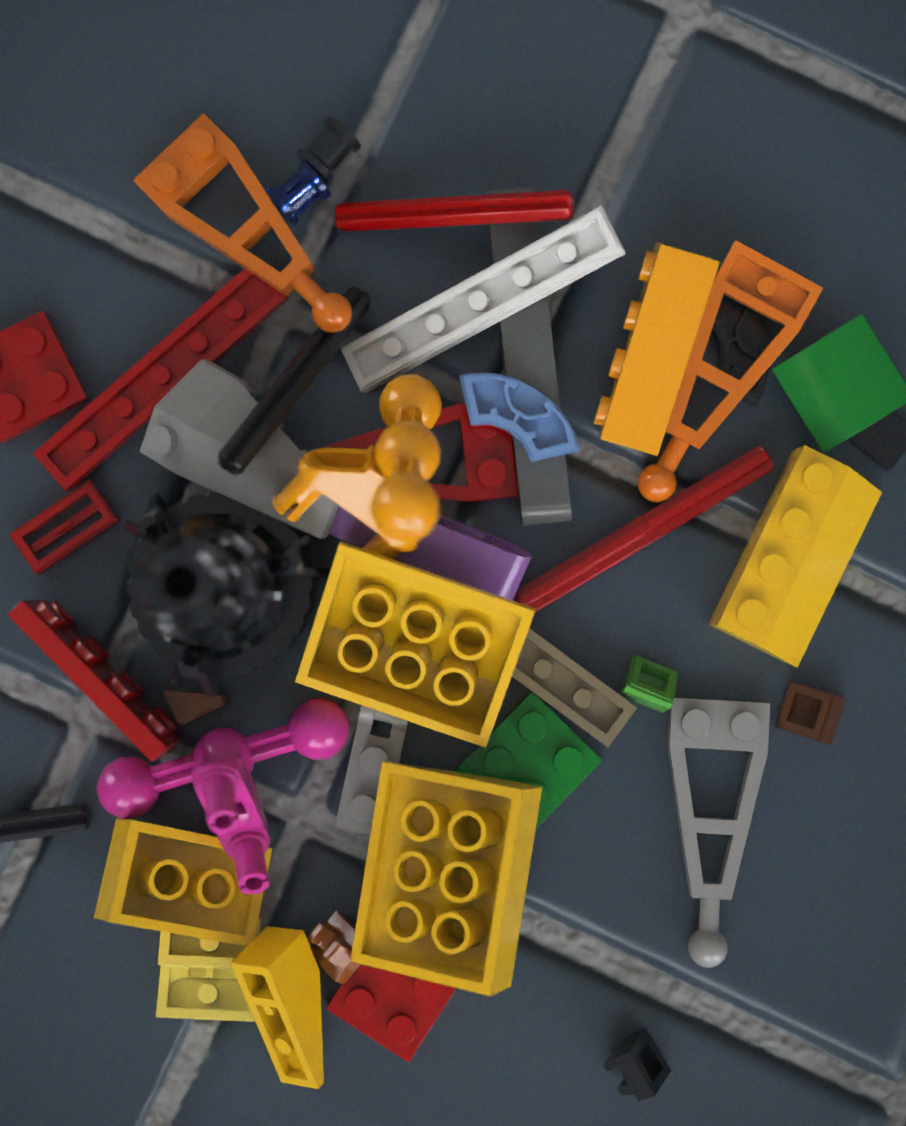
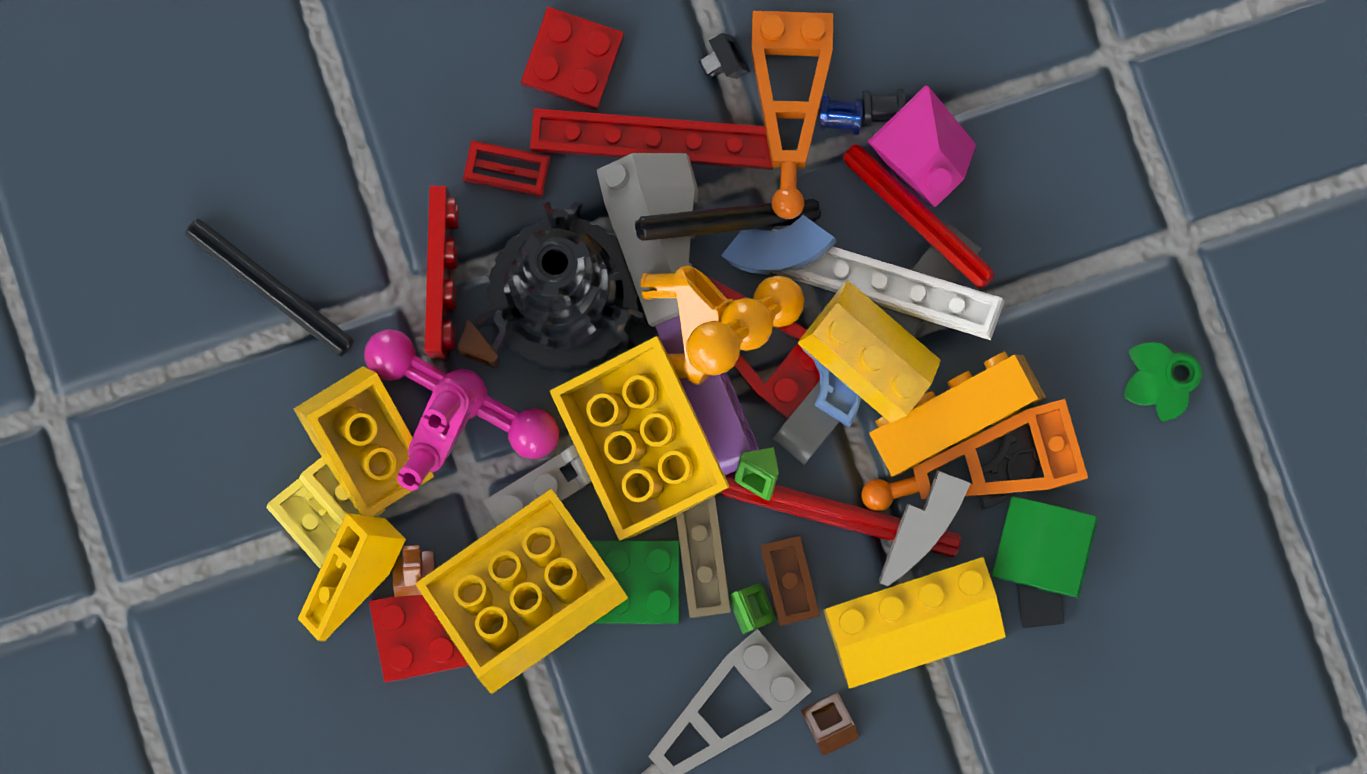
camera: 50 degrees right, 5 degrees down
(150, 245) = (725, 58): none -> black tile
(365, 360) = (780, 249): none -> medium blue tile
(399, 147) = (925, 148): none -> dark pink slope
(536, 369) = (871, 353): none -> yellow slope
(542, 567) = (758, 472): none -> bright green slope
(658, 630) = (789, 581): none -> reddish brown plate
(729, 471) = (923, 527): none -> light grey slope
(789, 149) = (1156, 380): none -> green plate

